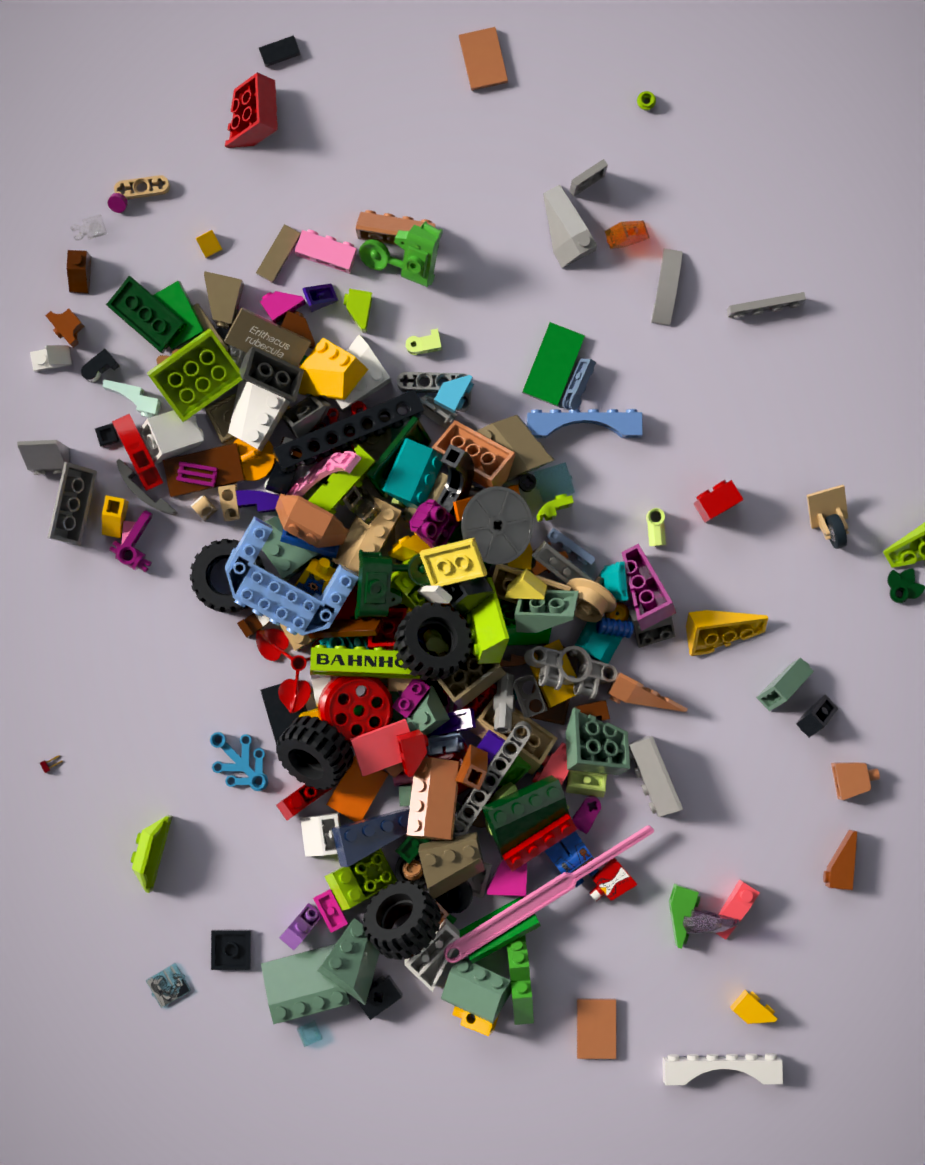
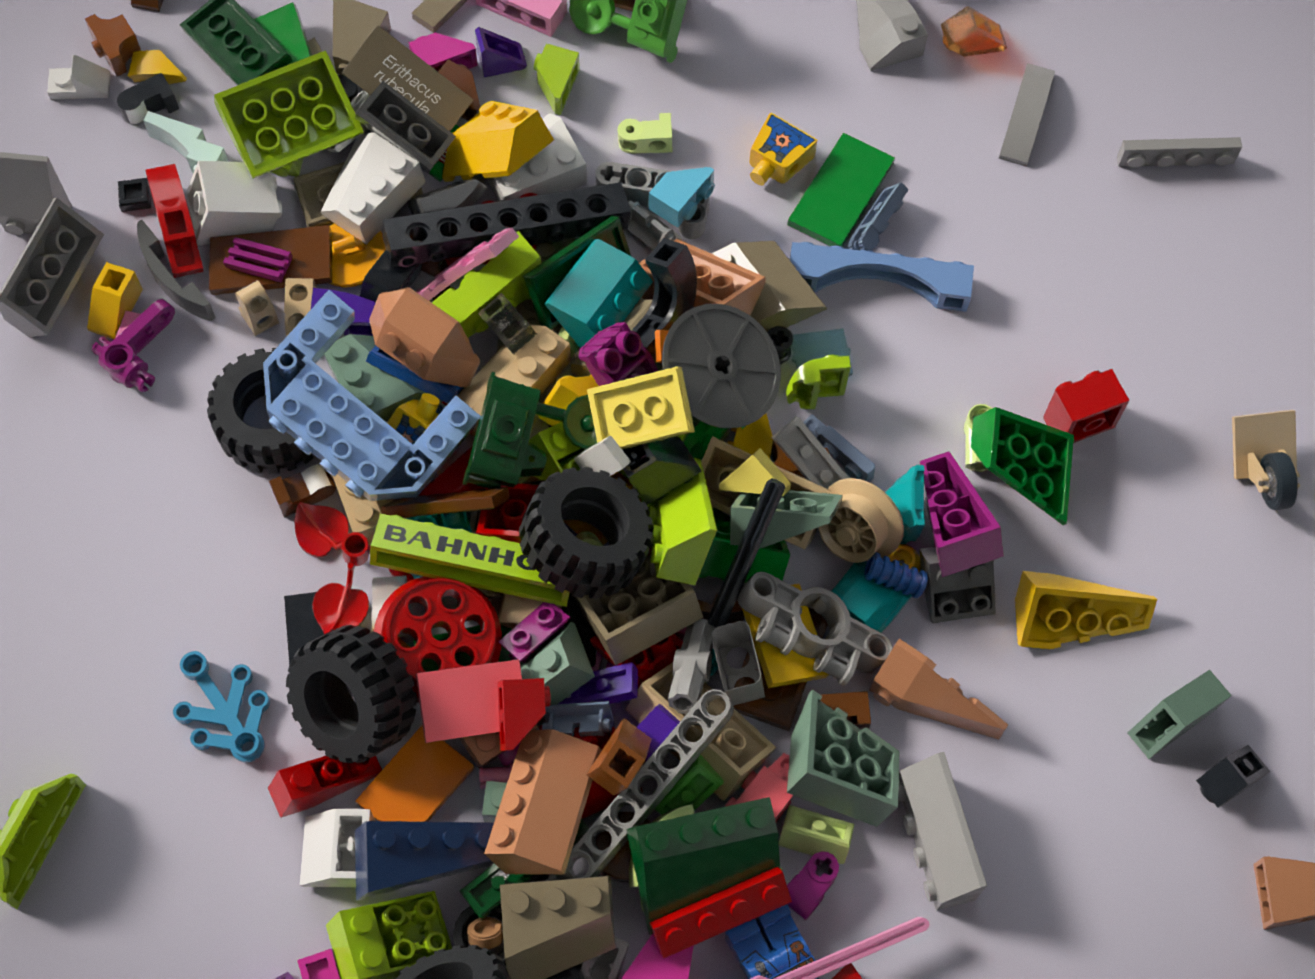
camera: 10 degrees right, 20 degrees down
(97, 339) = (152, 62): none -> yellow slope
(510, 343) = (780, 151): none -> yellow torso
(527, 638) = (746, 552): none -> black axle
(684, 544) = (1026, 457): none -> green wedge

